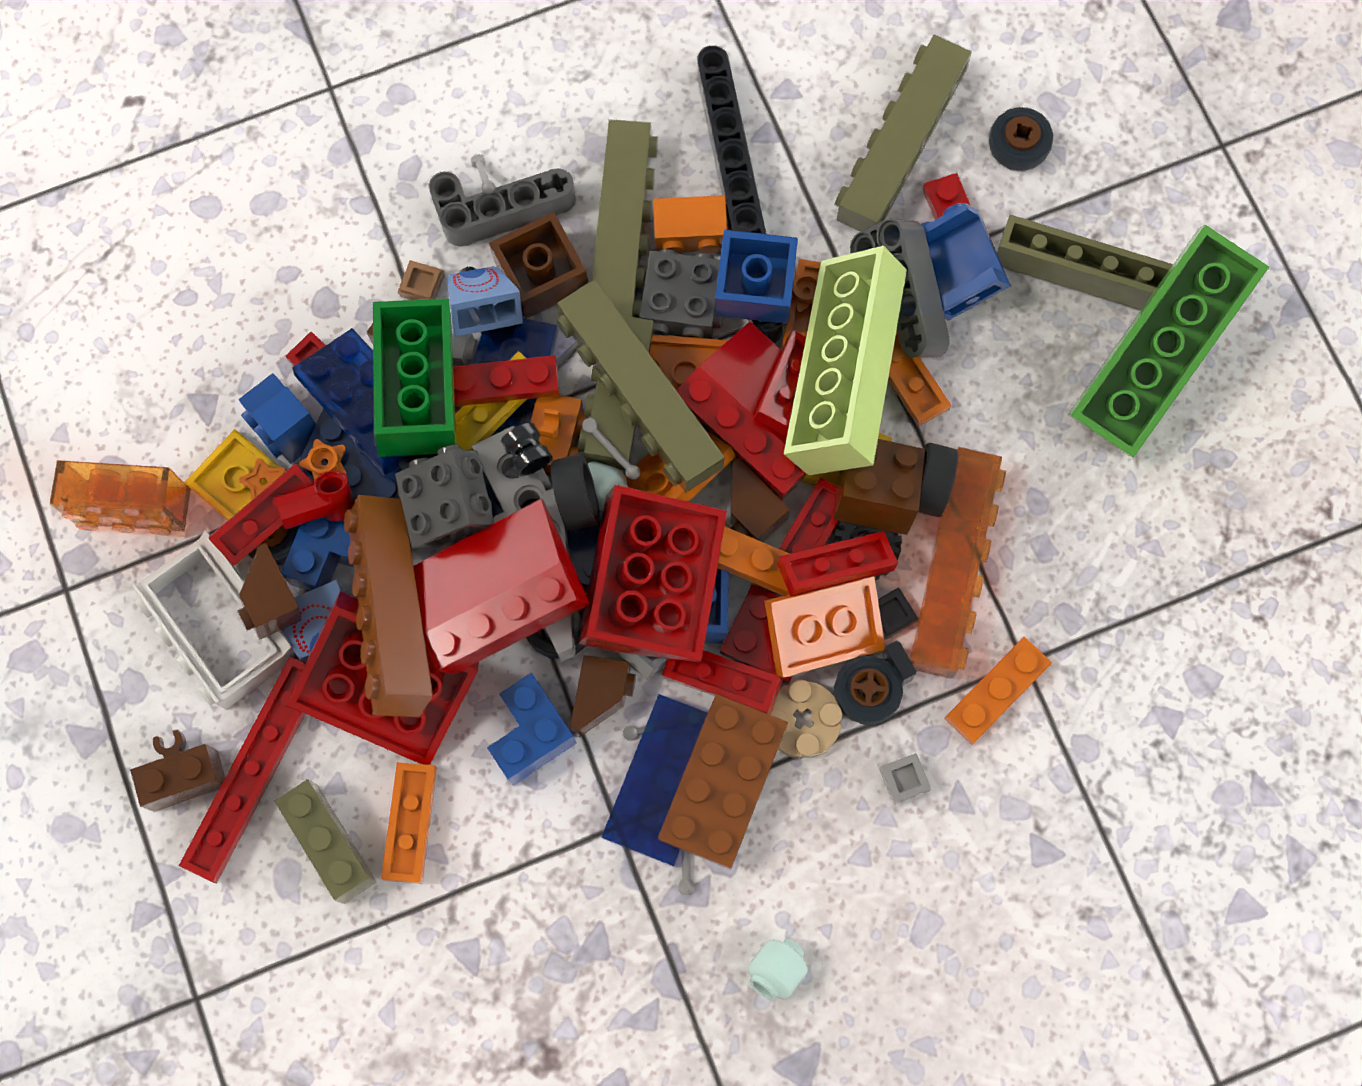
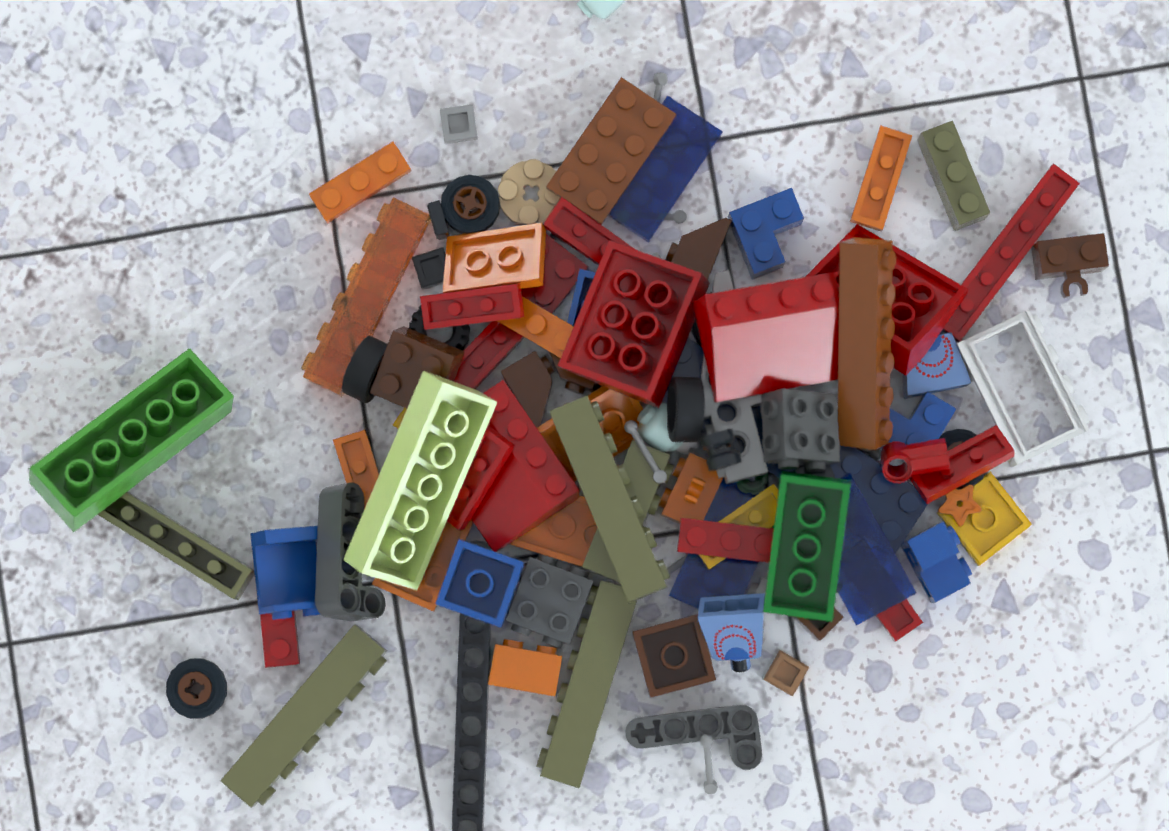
camera: 170 degrees left, 10 degrees up
(120, 497) = (1089, 512): clear orange brick -> none
(266, 597) = (970, 385): reddish brown slope -> none
(321, 452) = (910, 499): orange plate -> none

